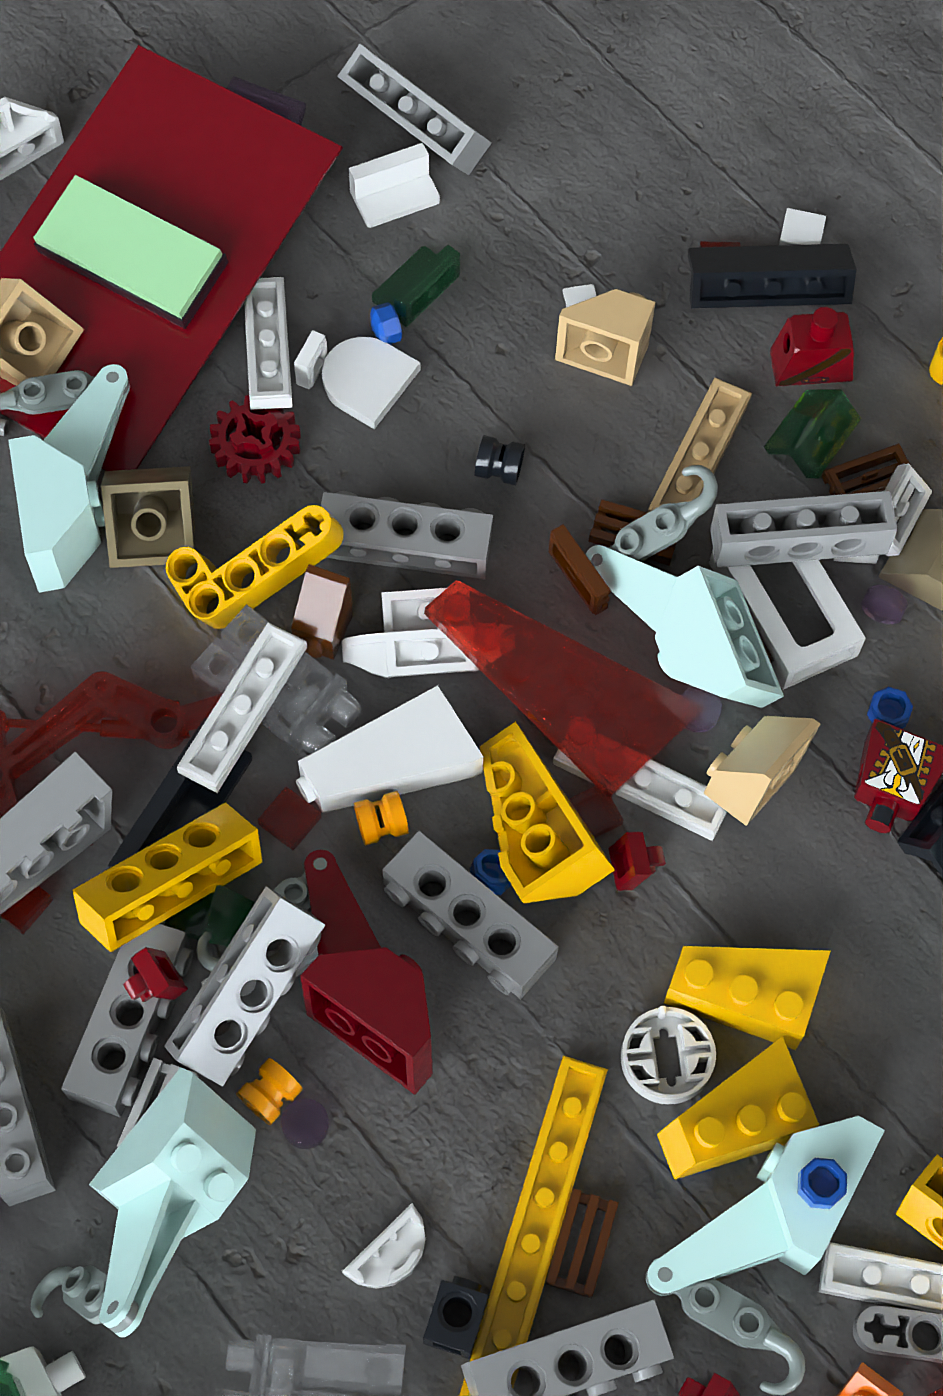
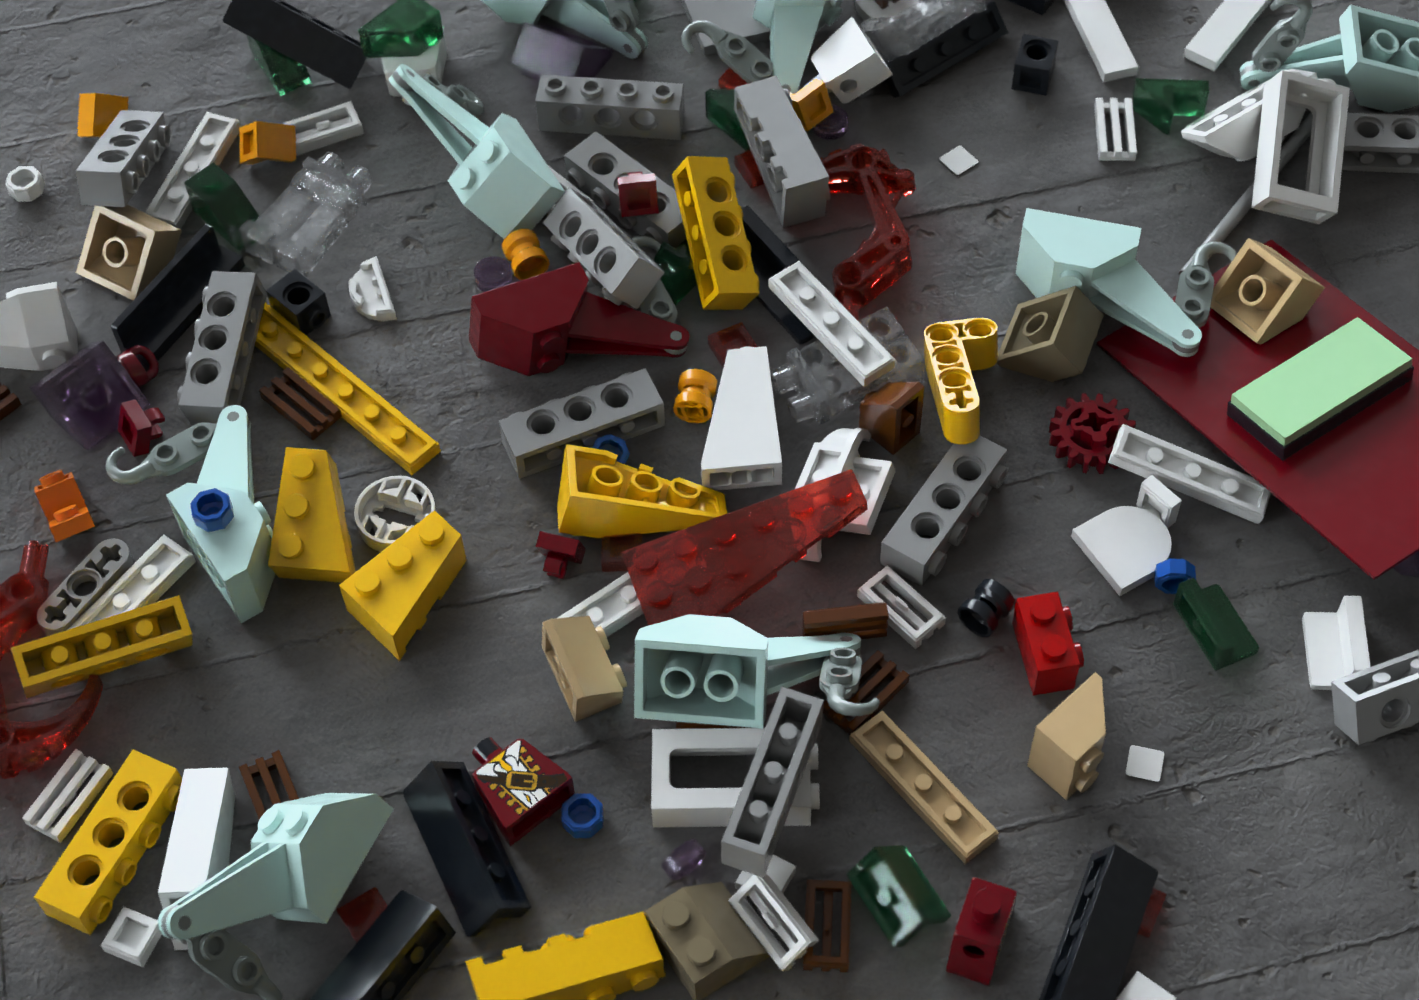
camera: 120 degrees right, 10 degrees down
(515, 396) = (1046, 643): none -> red brick
(516, 568) = (896, 622): none -> white tile

